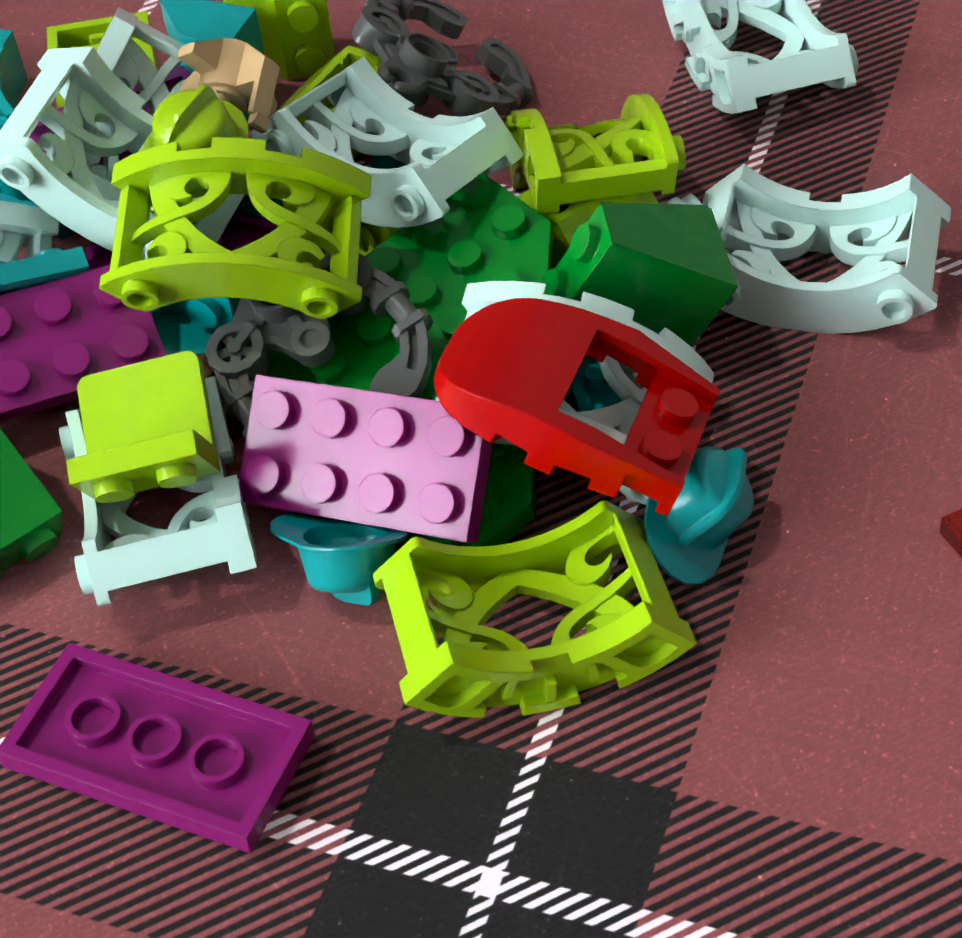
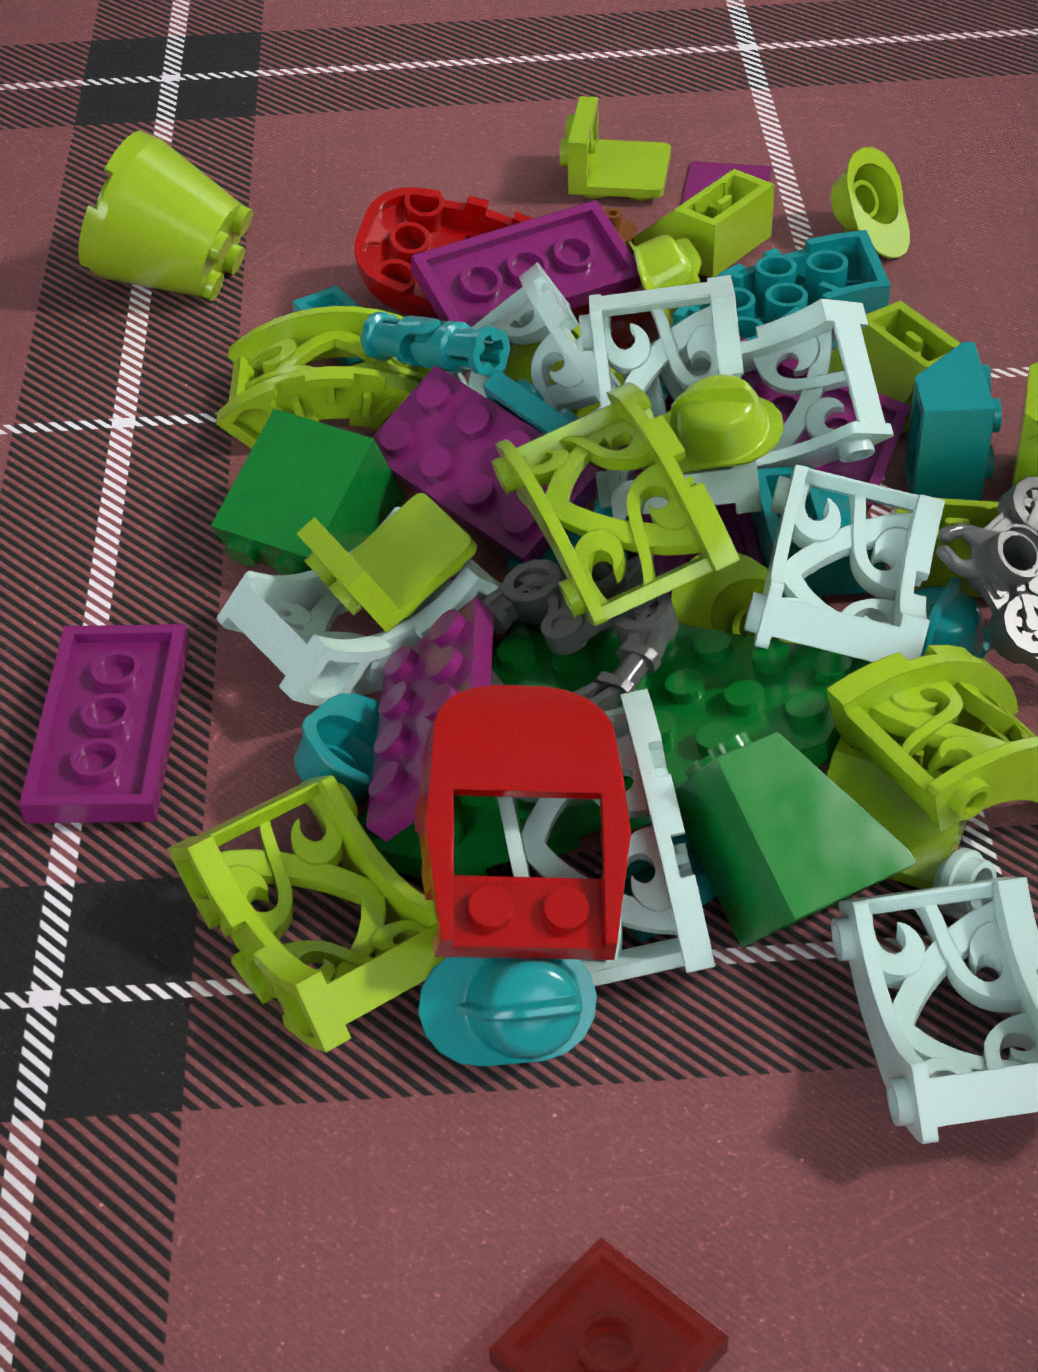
camera: 65 degrees right, 5 degrees down
(236, 75) = (826, 421): tan piece -> none

